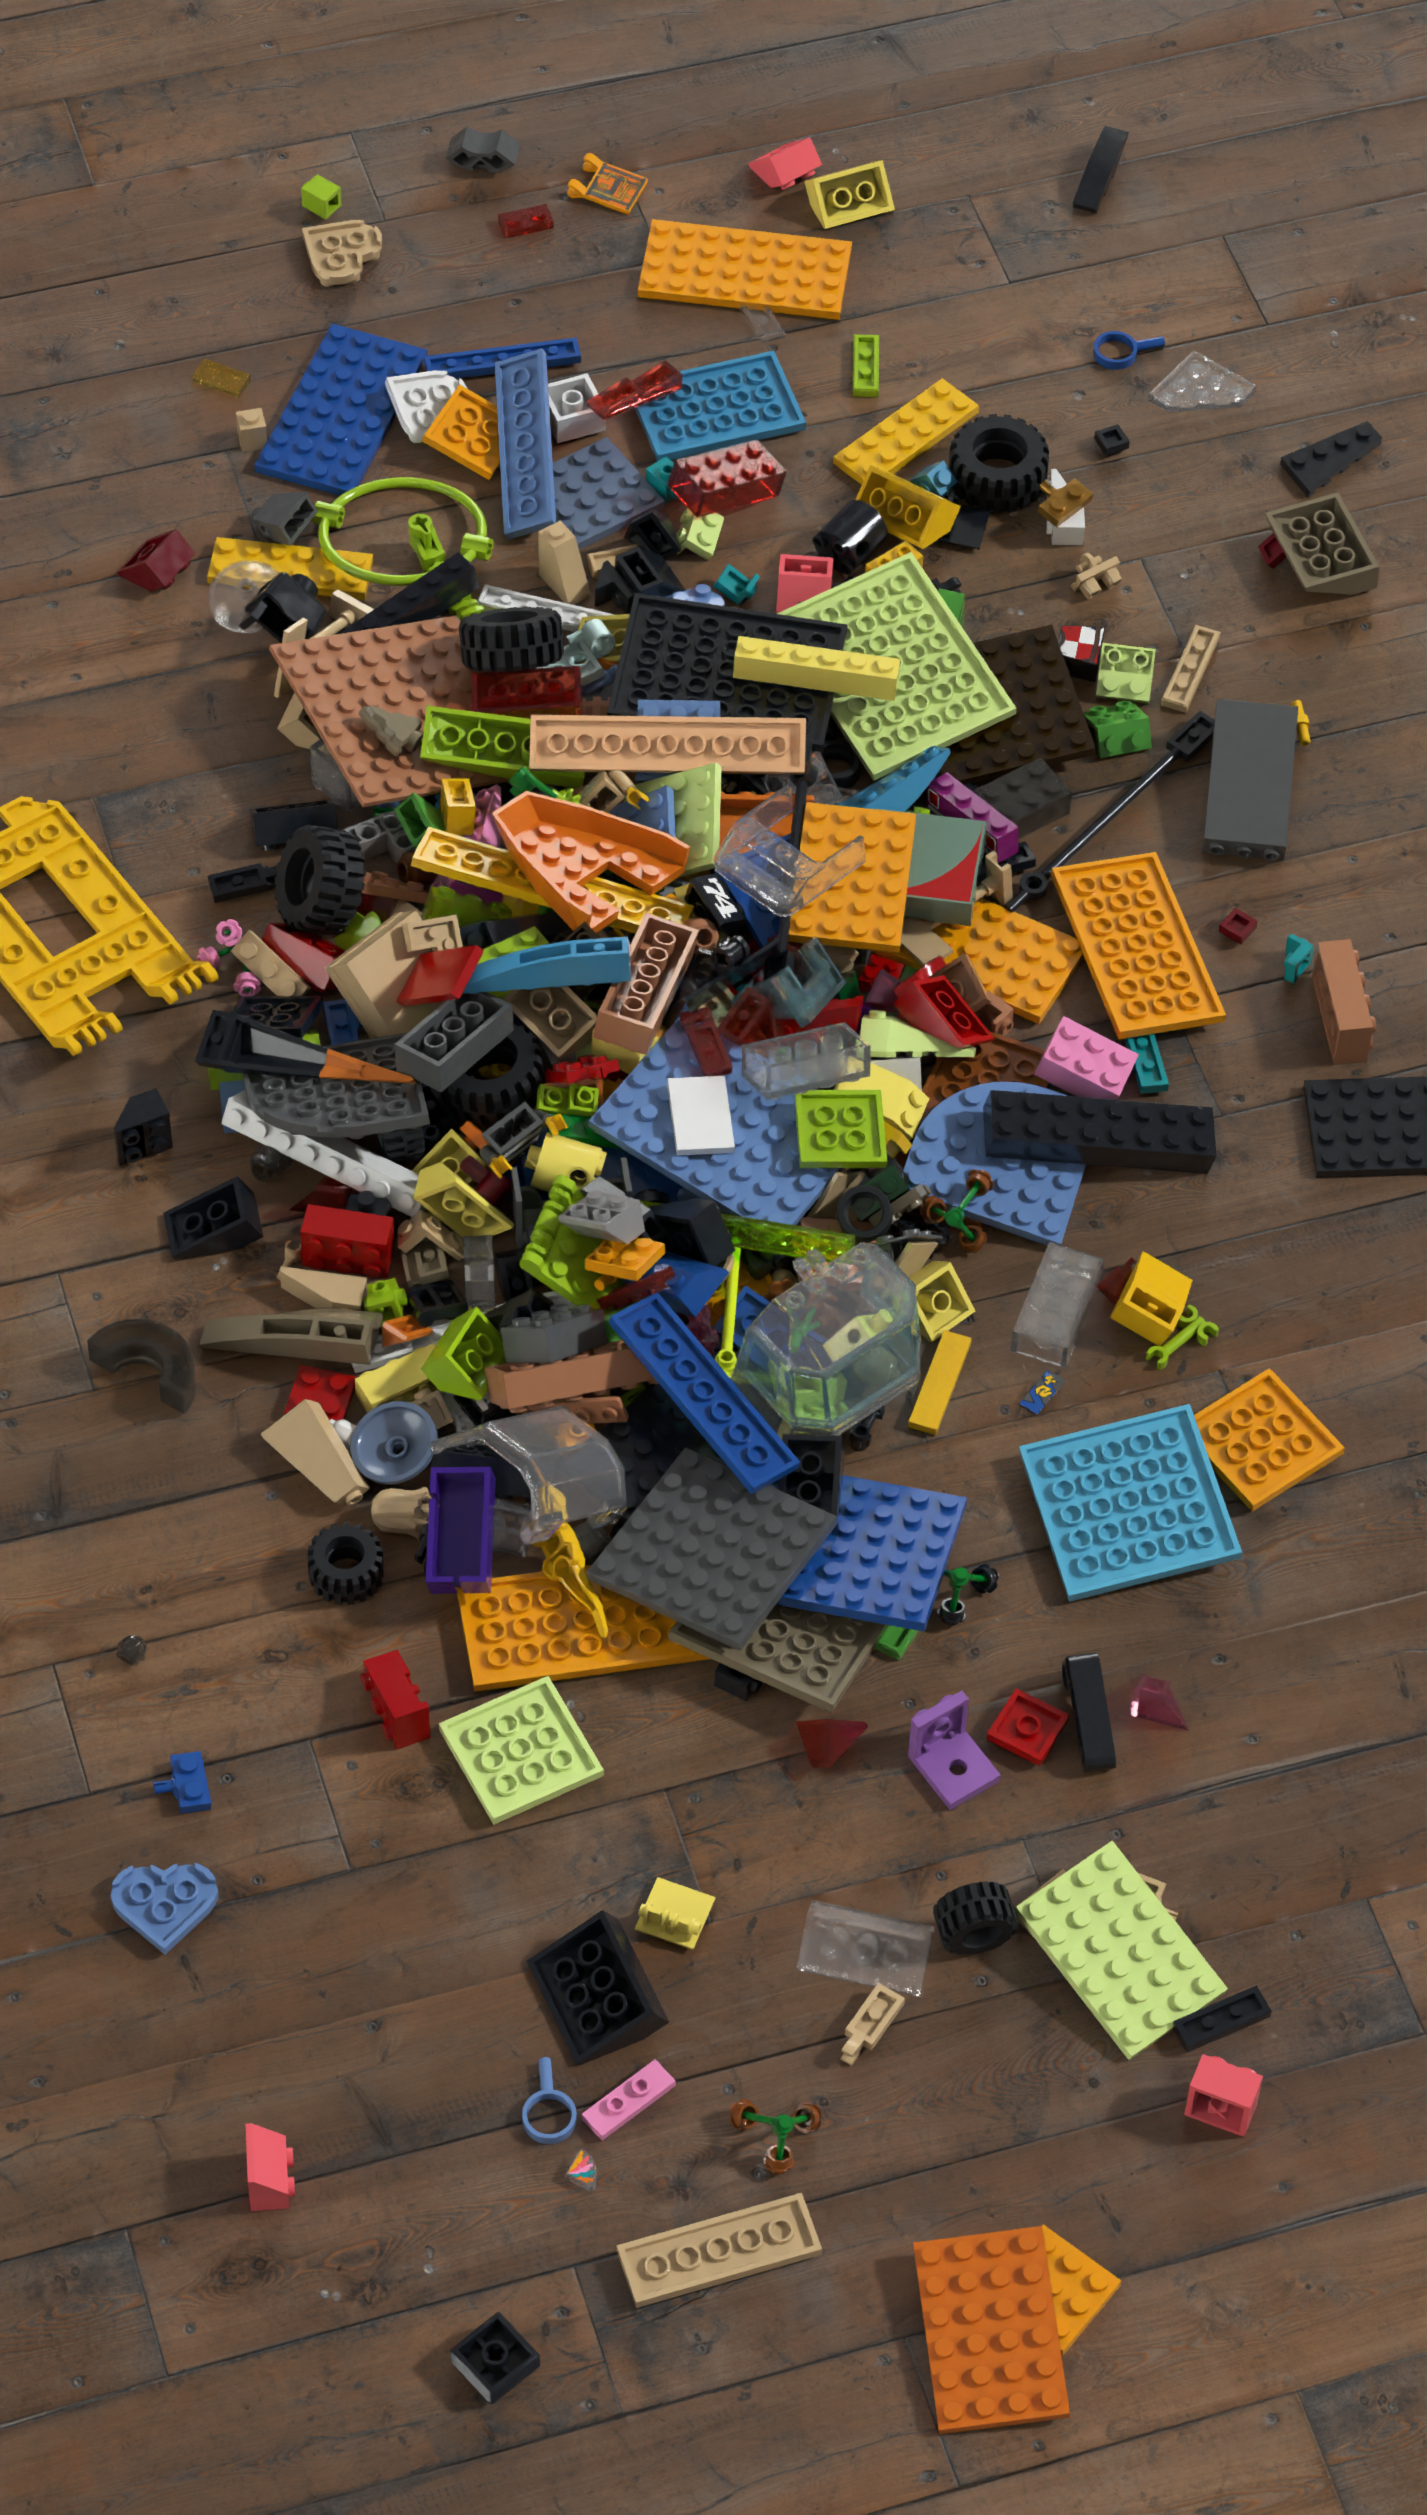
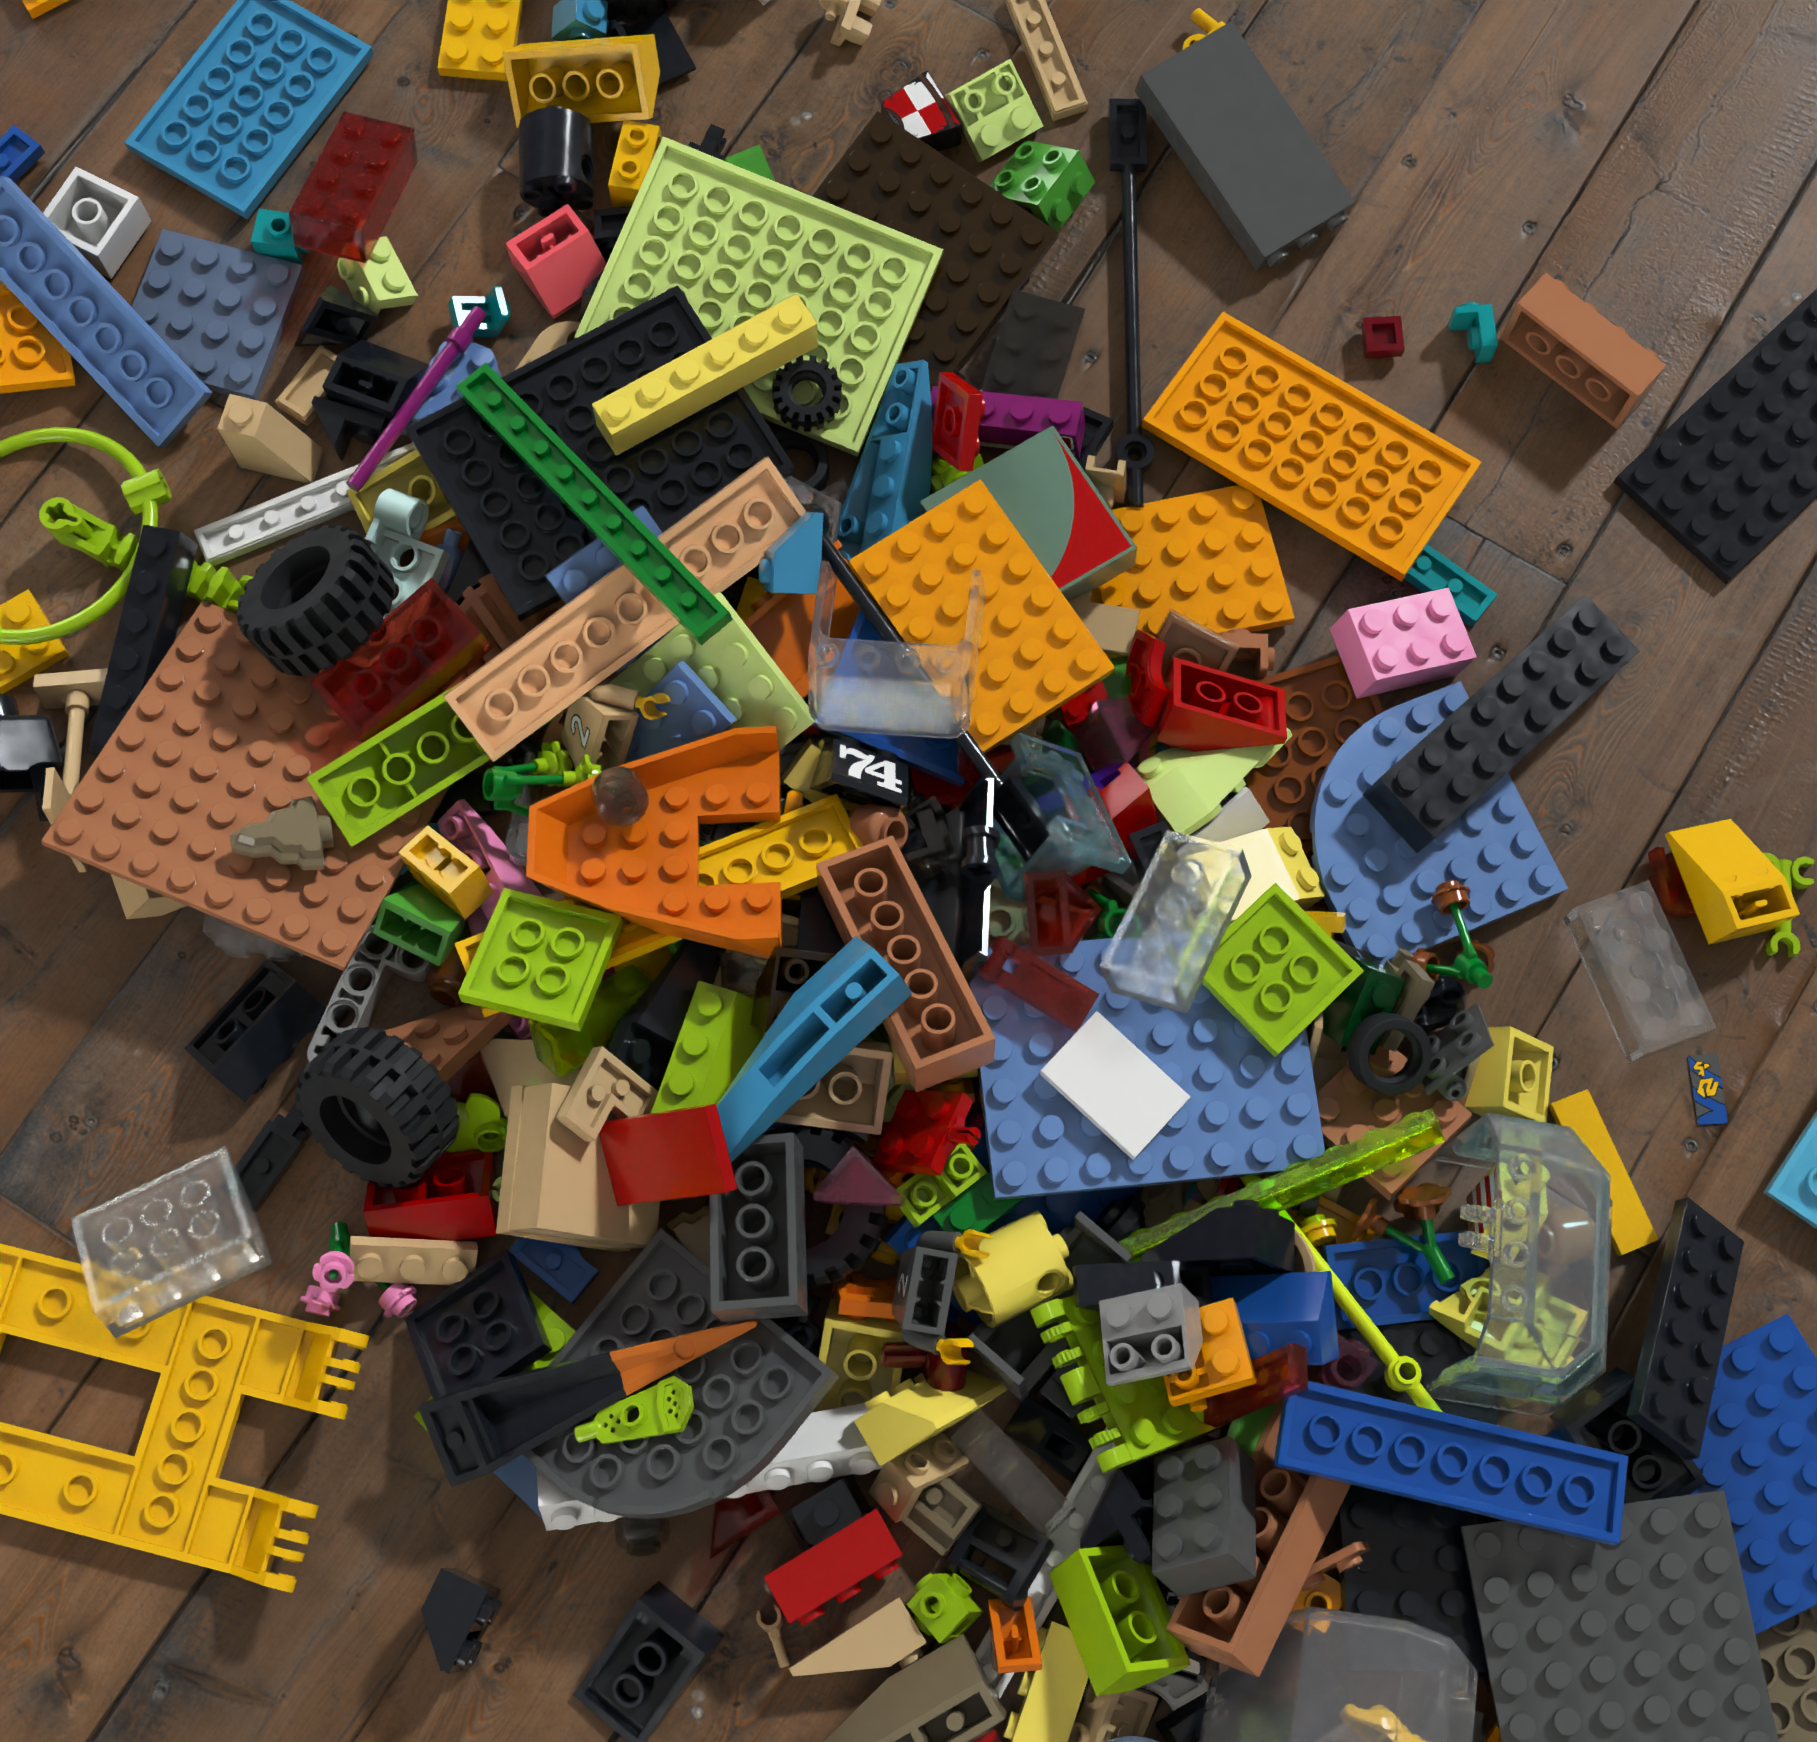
camera: 40 degrees left, 20 degrees up
(160, 876) = (168, 1242): none -> clear slope
(316, 1086) = (653, 1414): none -> lime piece
(464, 855) = (541, 959): none -> lime plate
(521, 1054) = (857, 1182): none -> clear pink slope
(584, 818) = (619, 796): none -> clear smoke head
(629, 394) = (154, 150): clear red slope -> none
(693, 678) = (595, 504): none -> green plate
(709, 585) = (457, 342): none -> magenta bar
(750, 1279) = (1319, 1230): none -> yellow plate
(775, 775) = (794, 558): none -> dark azure slope
(869, 711) = (806, 371): none -> black tyre
(900, 1453) = (1686, 1329): none -> black plate
(930, 793) = (957, 421): none -> red plate

